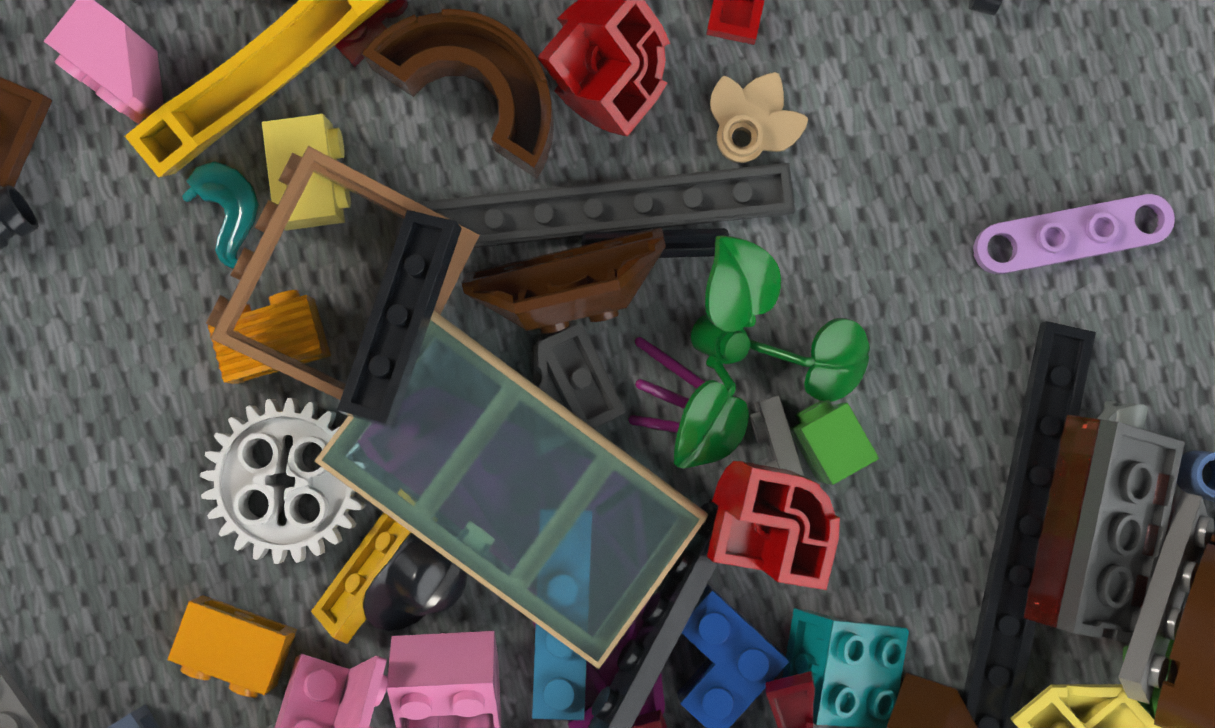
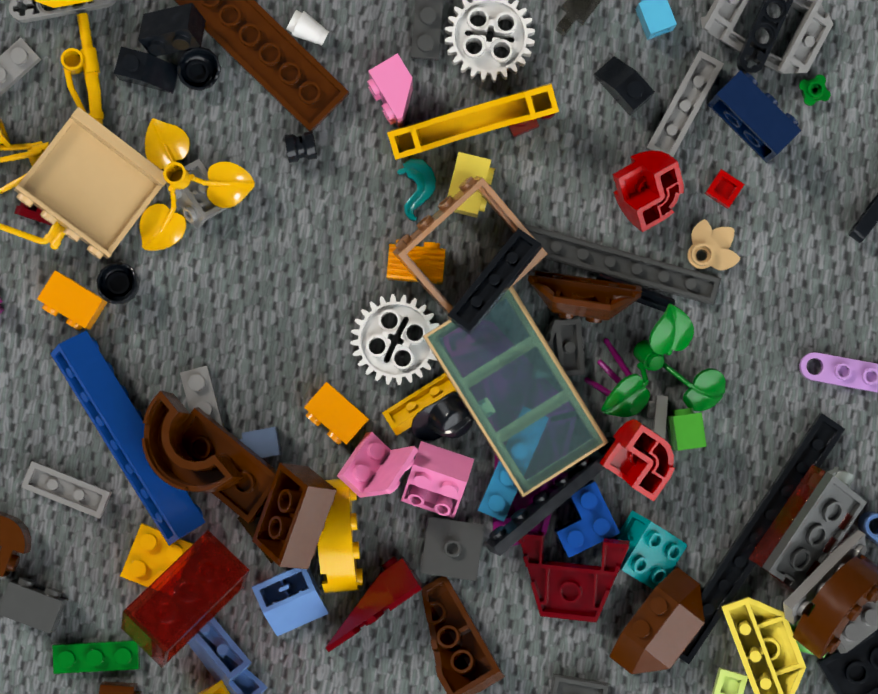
camera: 20 degrees right, 0 degrees up
(485, 51) = (586, 160): reddish brown brick -> none

